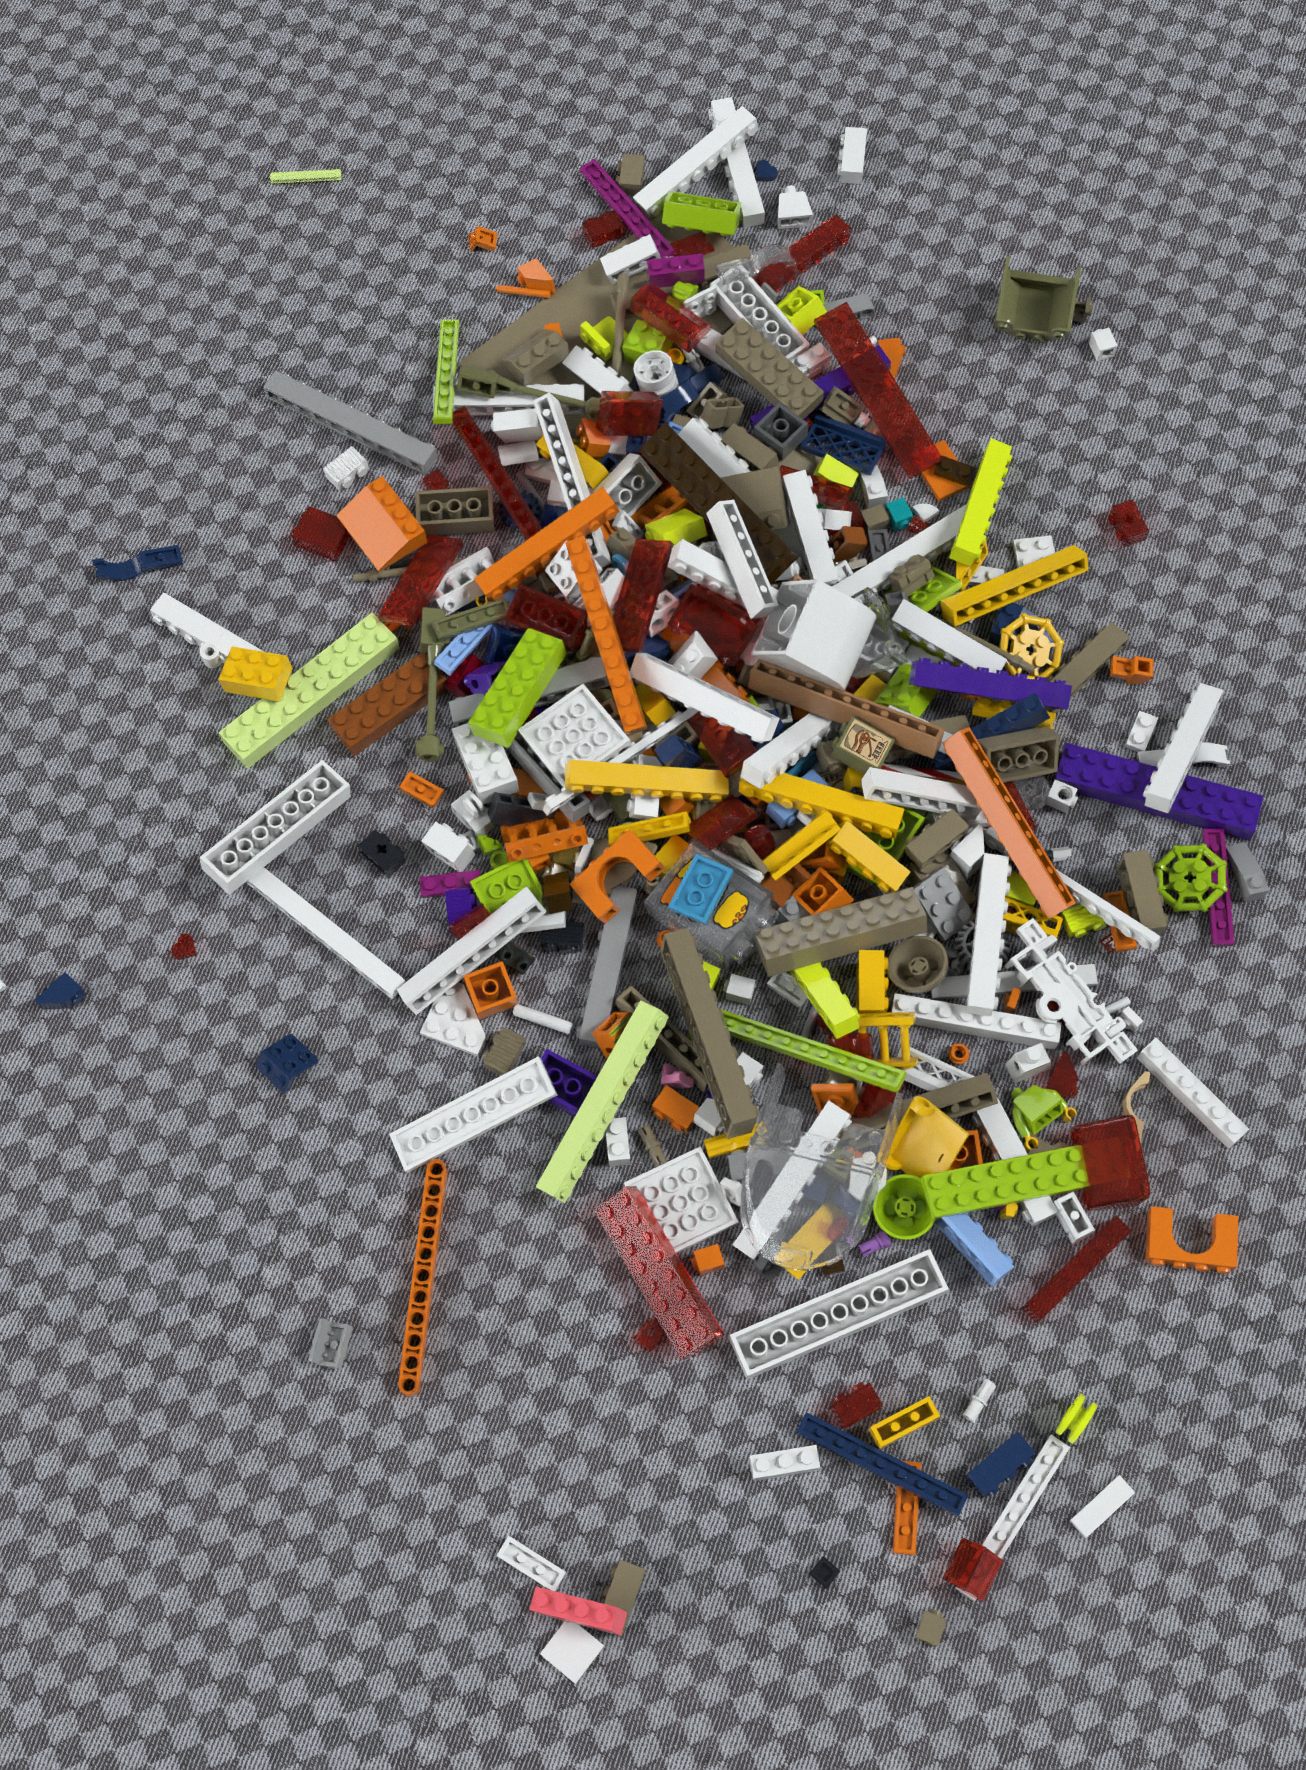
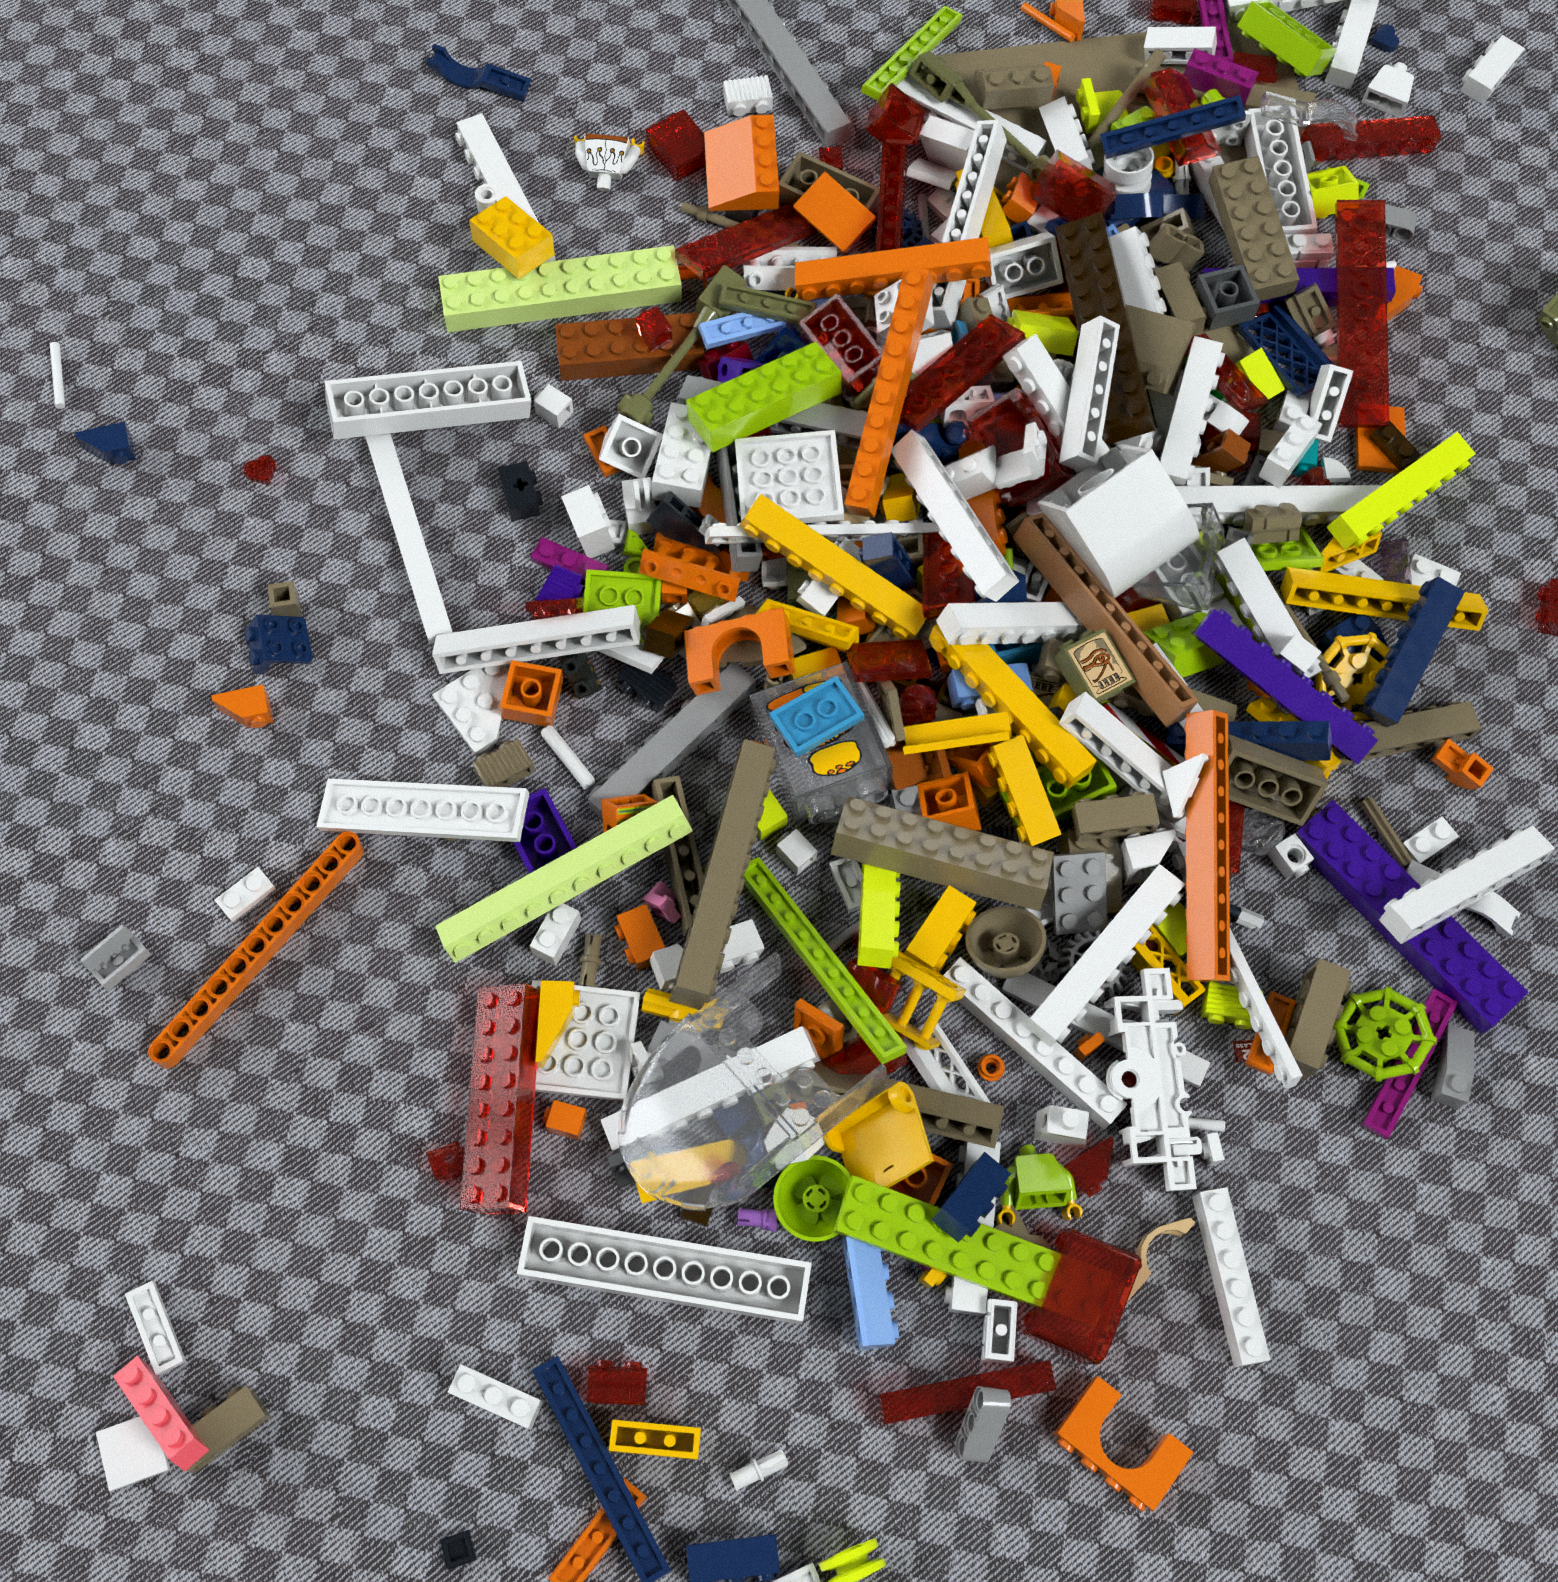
camera: 25 degrees right, 0 degrees up
(272, 1029) = (284, 599): none -> dark tan brick
(275, 573) = (607, 157): none -> torso
(296, 1119) = (246, 706): none -> orange slope
(363, 778) = (553, 405): none -> white brick
(386, 1247) = (245, 894): none -> white plate
(403, 682) = (654, 328): none -> clear red brick
(440, 776) = (630, 446): none -> white slope
(471, 429) = (895, 118): none -> clear red slope
(471, 523) = (834, 212): none -> orange tile
(654, 1190) = (555, 1013): none -> yellow slope
(664, 636) = (956, 433): none -> dark blue tile
(672, 330) = (1173, 127): none -> dark blue plate
(725, 632) = (1023, 463): none -> white bracket
(891, 516) = (1290, 450): none -> white brick
(893, 468) = (1329, 398): none -> white brick
(967, 790) = (1182, 781): none -> white tile
(988, 657) = (1301, 655): none -> white brick
(1005, 553) = (1396, 561): none -> plate
(1005, 1143) = (972, 1198): none -> dark blue brick
(1056, 612) = (1412, 651): none -> dark blue brick
(1100, 1281) = (982, 1424): none -> light grey beam
(1110, 742) = (1386, 831): none -> dark tan axle

